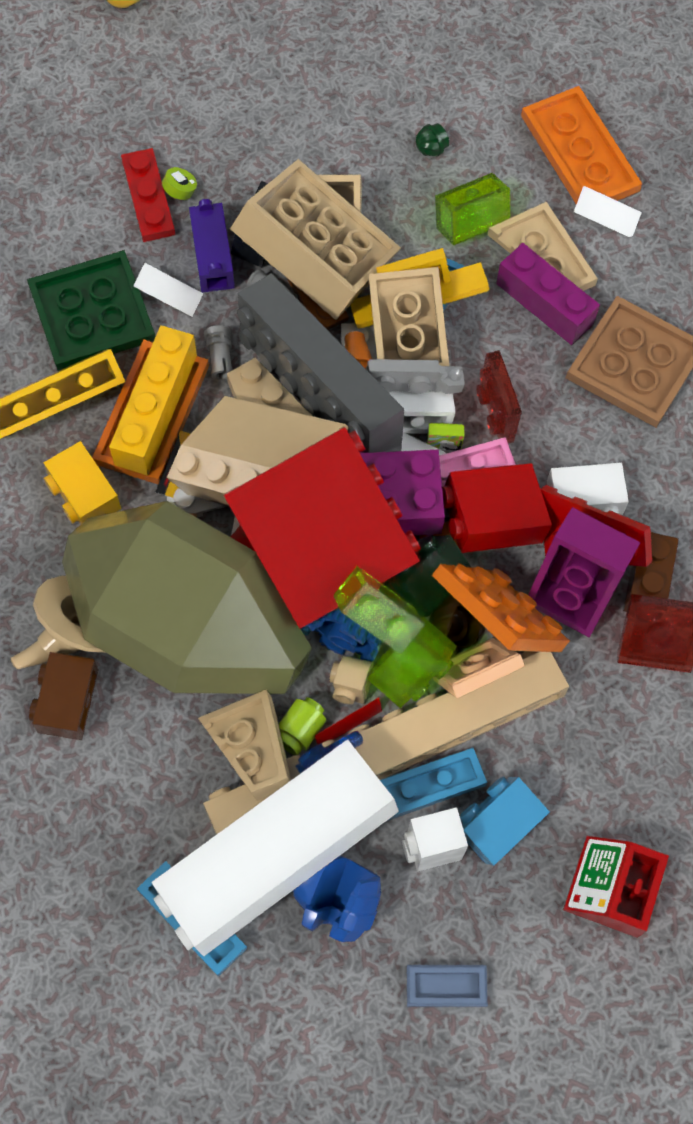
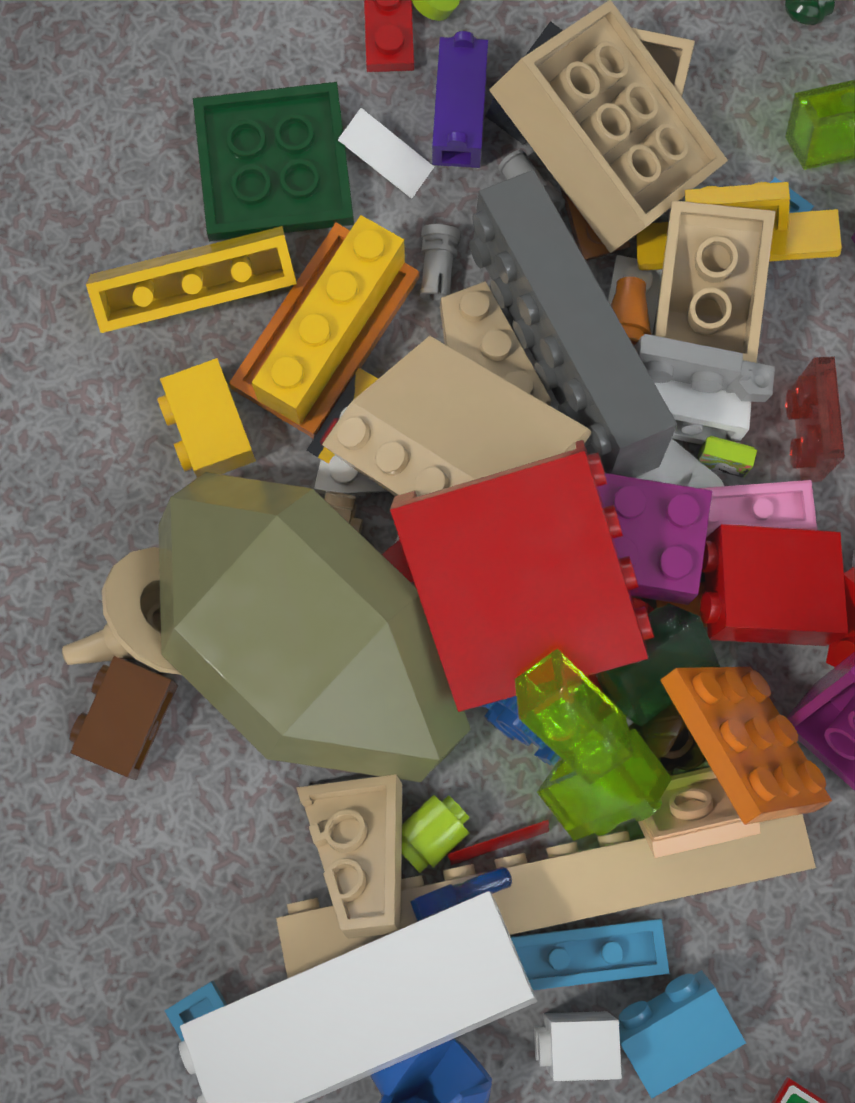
camera: 15 degrees right, 10 degrees up
(351, 680) = (515, 781): tan plate -> none

